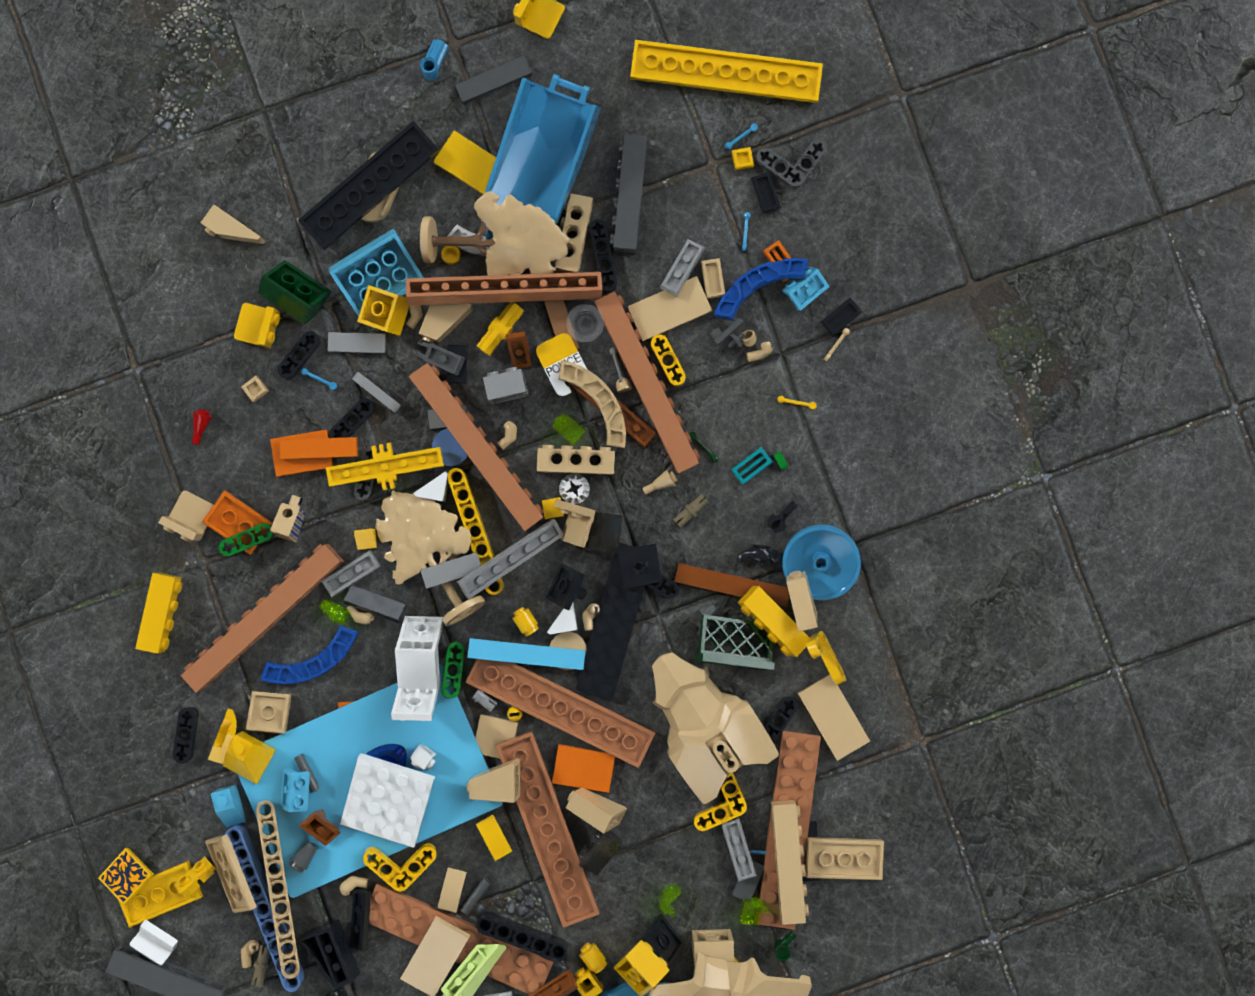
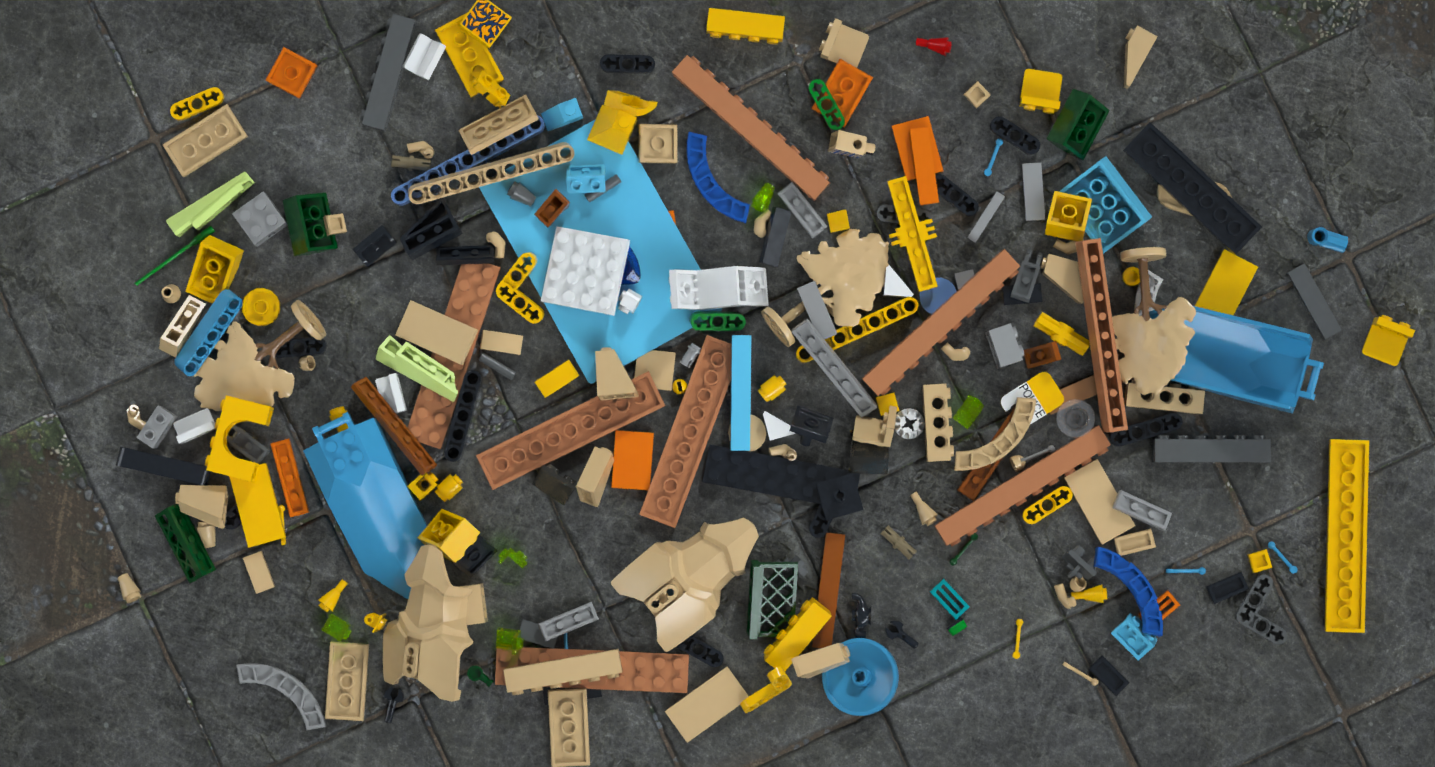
camera: 80 degrees right, 0 degrees up
(726, 805) = (609, 606): yellow beam -> none
(760, 322) = (1094, 594): none -> yellow cone

